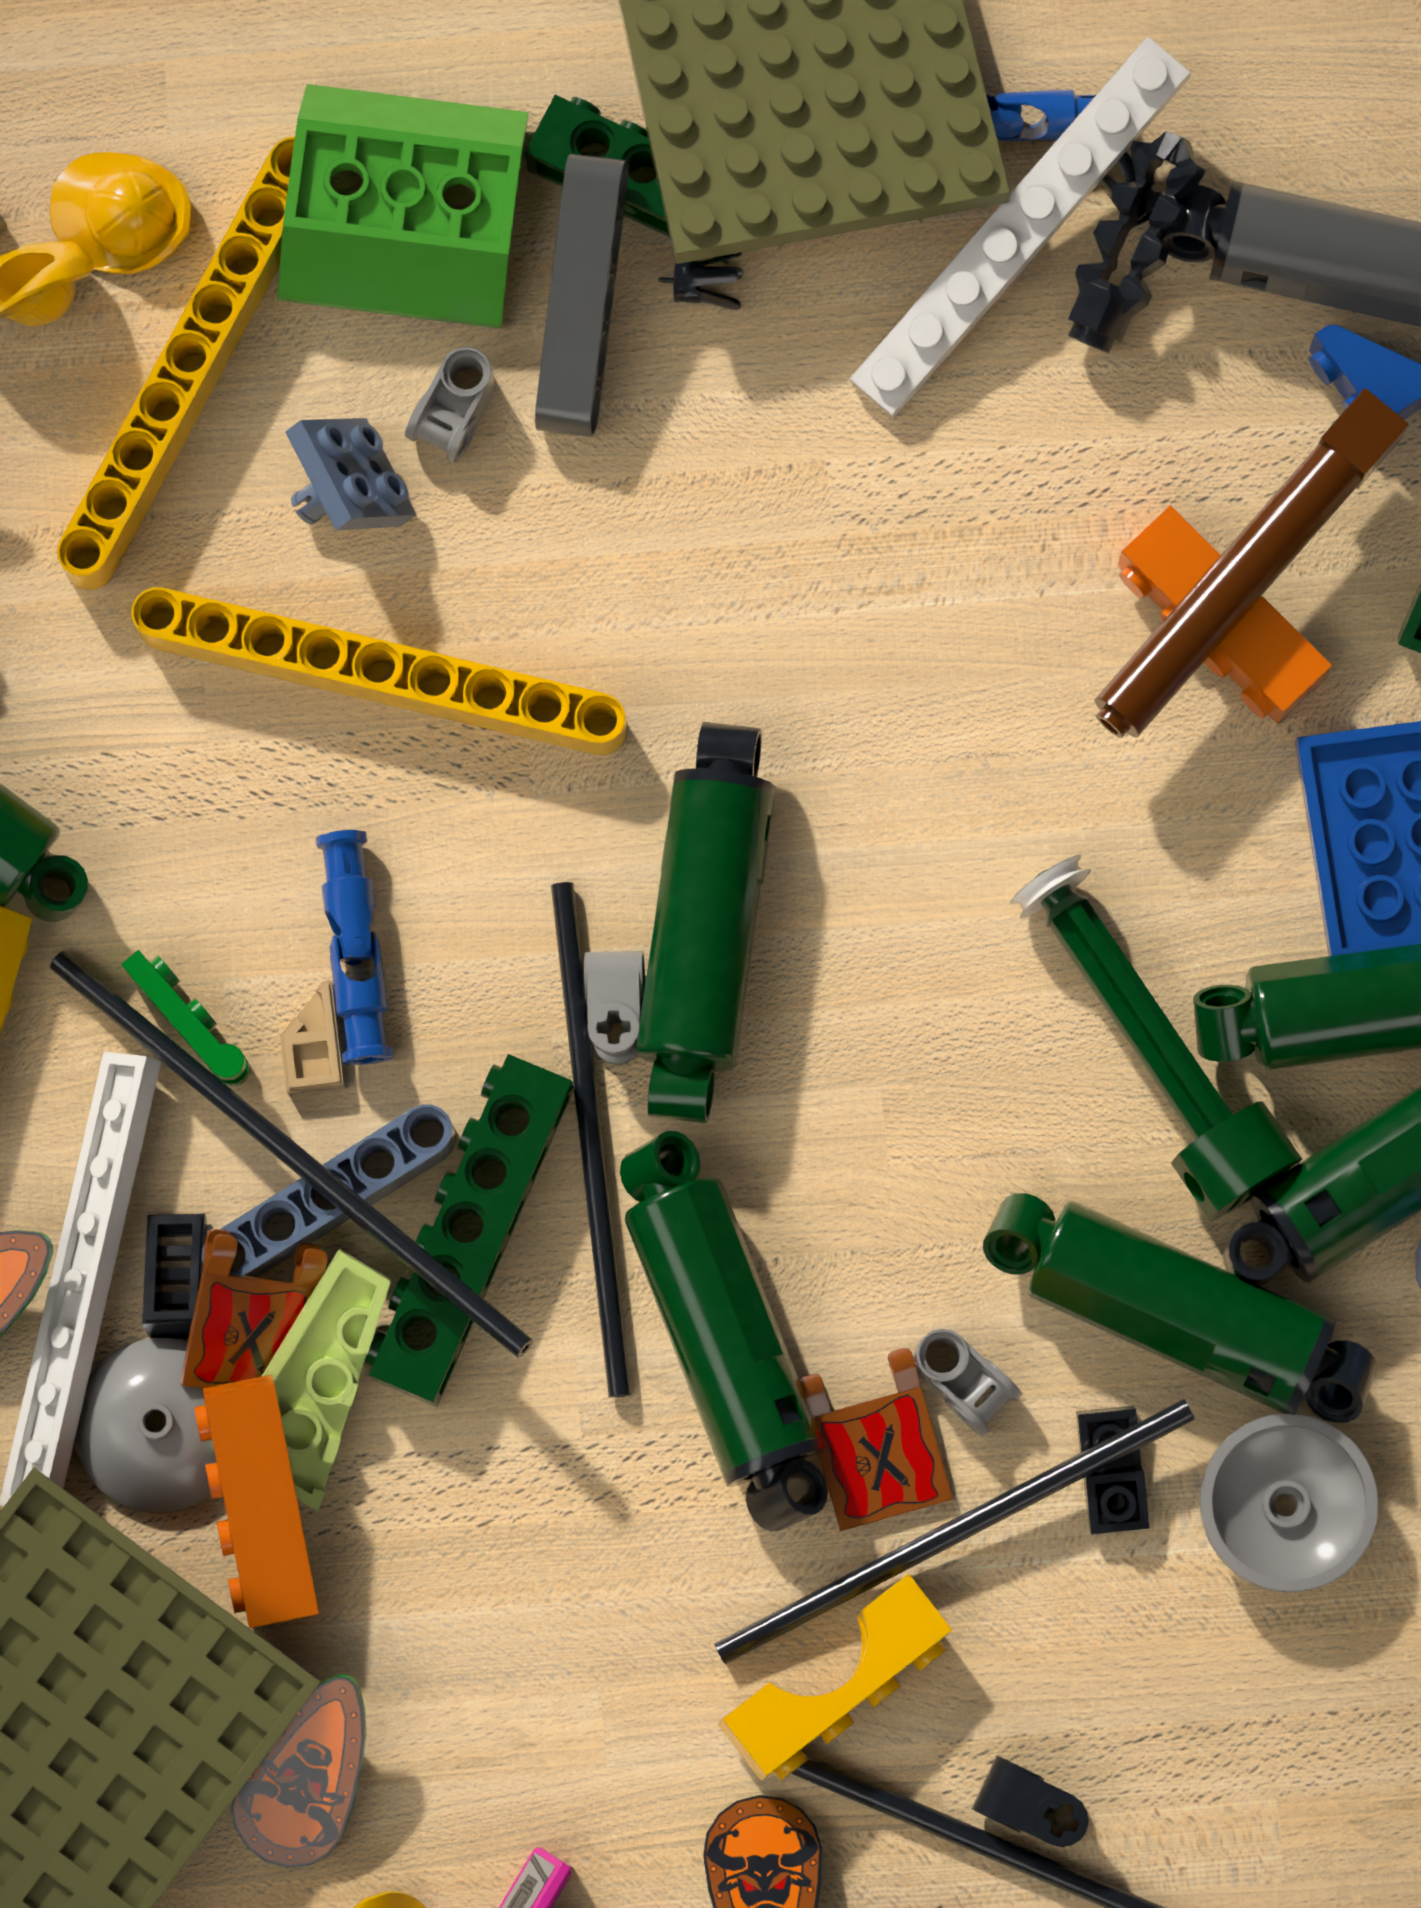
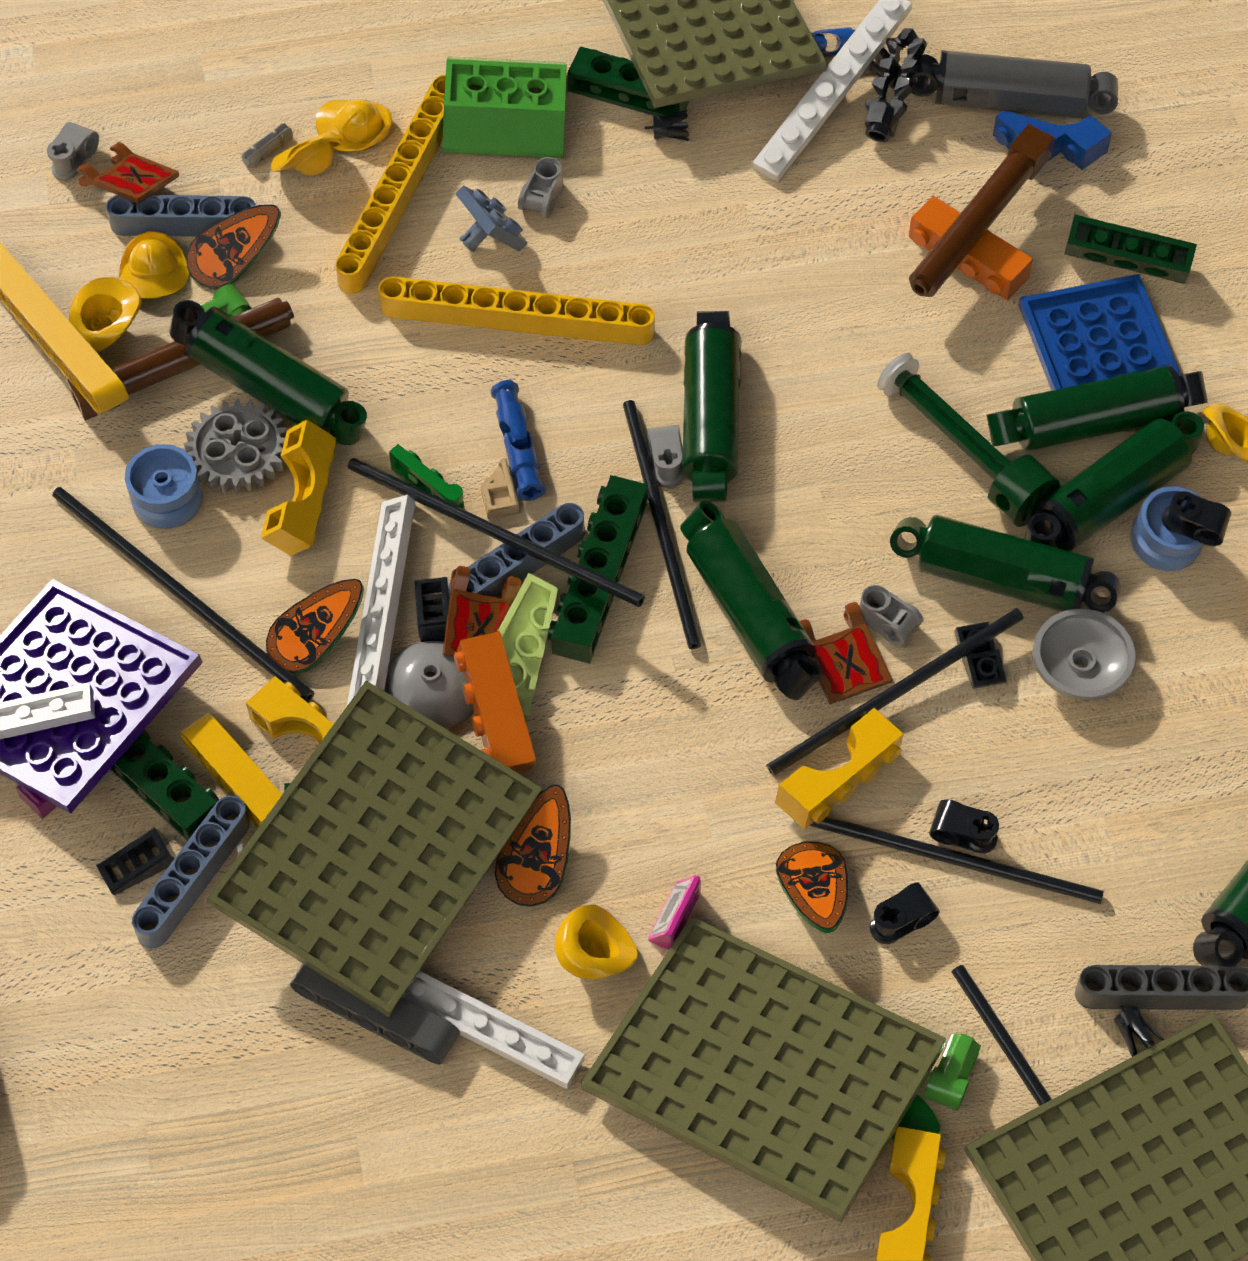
camera: 10 degrees left, 20 degrees down
(581, 295) = (605, 131): dark grey beam -> none

